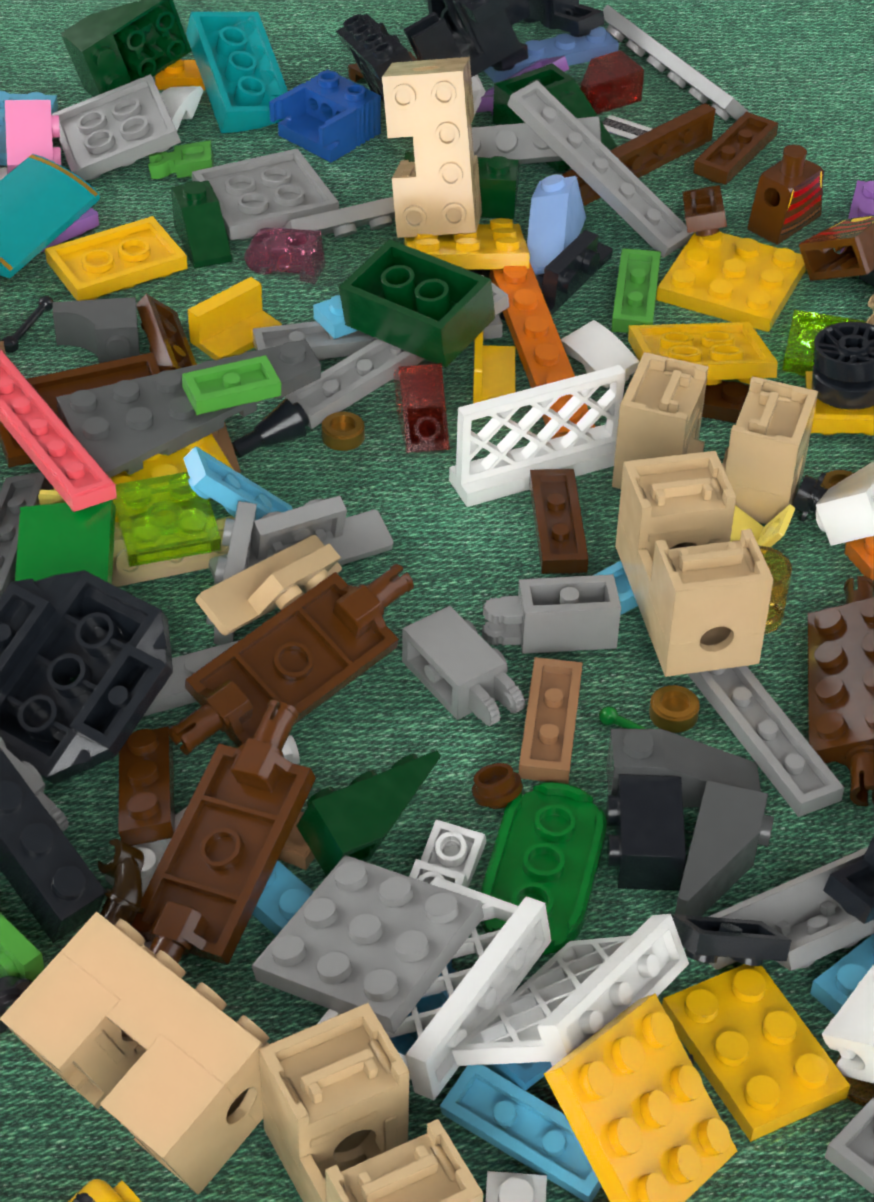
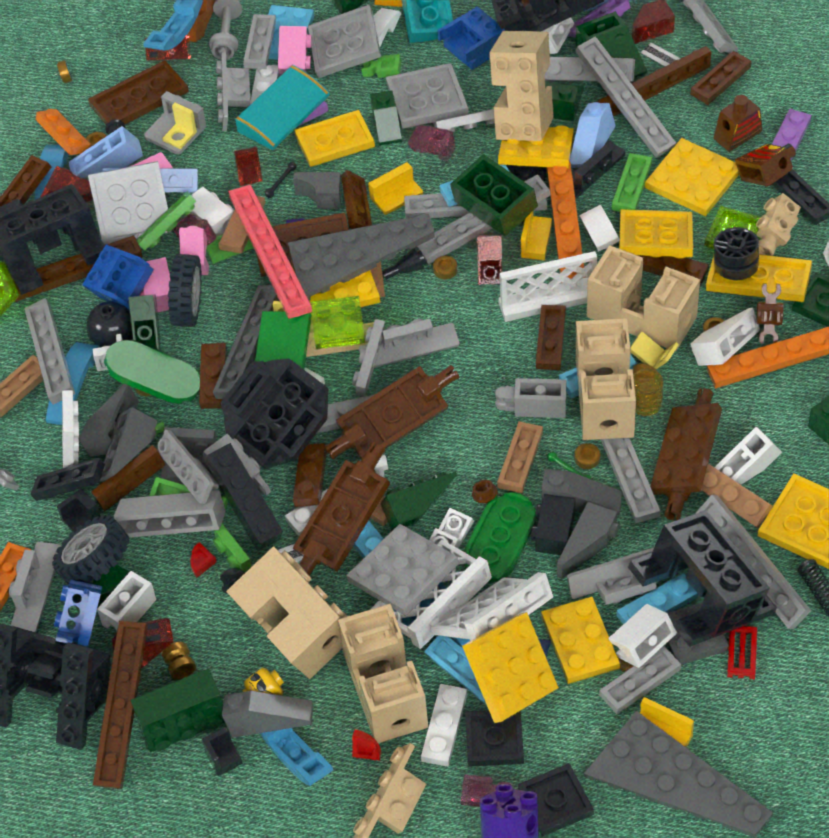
camera: 15 degrees right, 10 degrees up
(126, 895) = (291, 535): dark brown piece -> none
(217, 481) = (373, 308): medium azure plate -> none
(231, 384) = (381, 244): bright green plate -> none
(268, 584) = (386, 368): tan bracket -> none
(459, 667) = (478, 422): light grey hinge -> none
(704, 210) = (684, 128): reddish brown plate -> none
(739, 939) = (578, 586): black plate -> none
(809, 494) = (693, 332): black plate -> none

